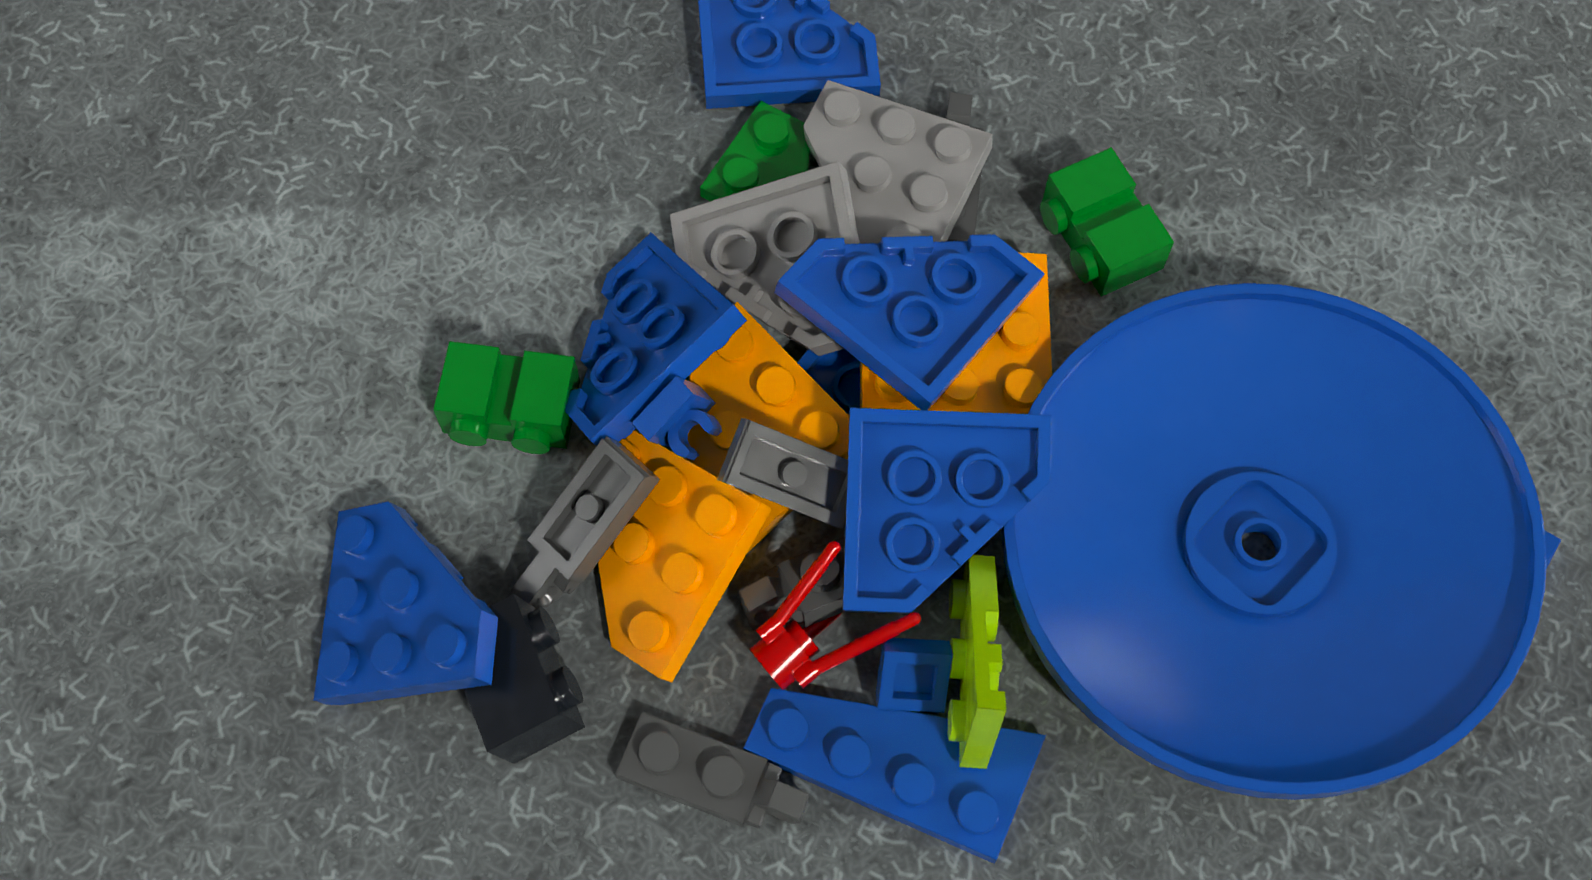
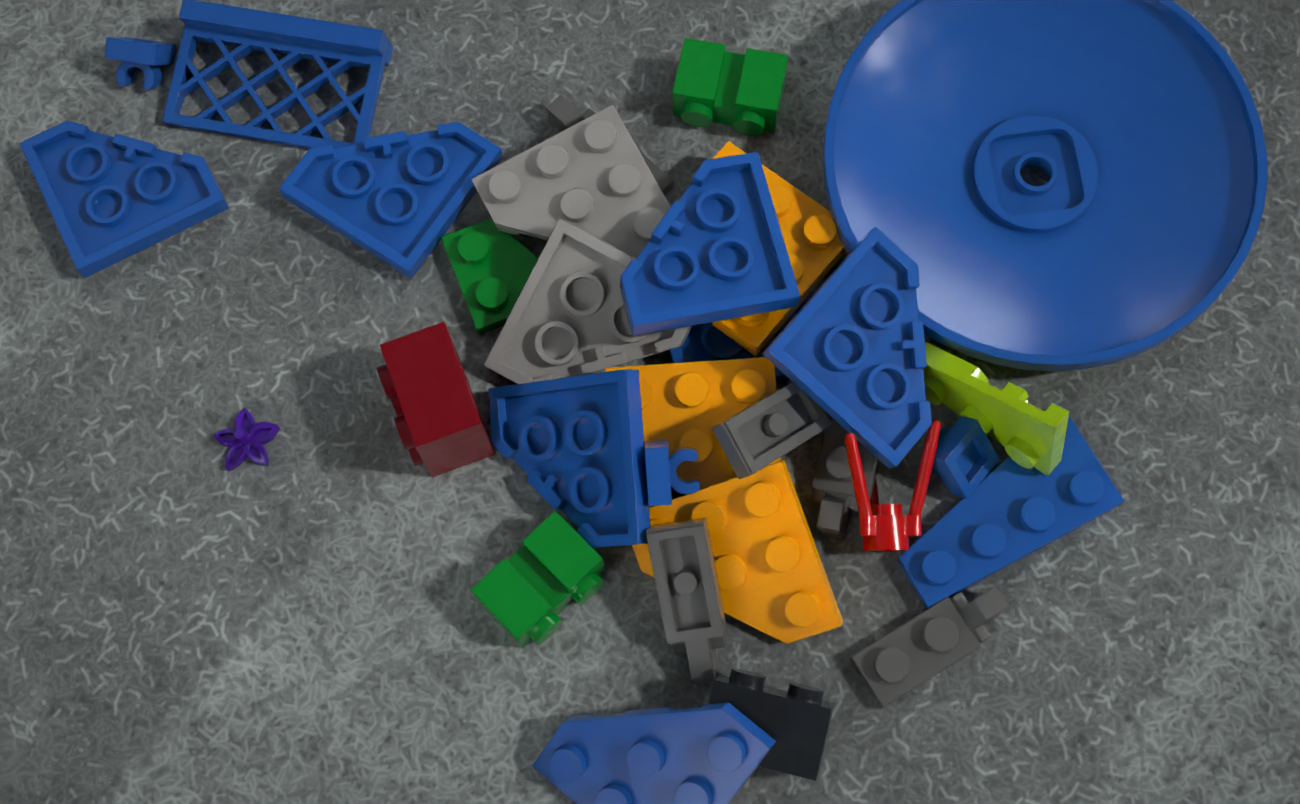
camera: 45 degrees left, 5 degrees up
(461, 91) = (247, 440): none -> dark purple plant
(598, 192) = (433, 401): none -> dark red brick

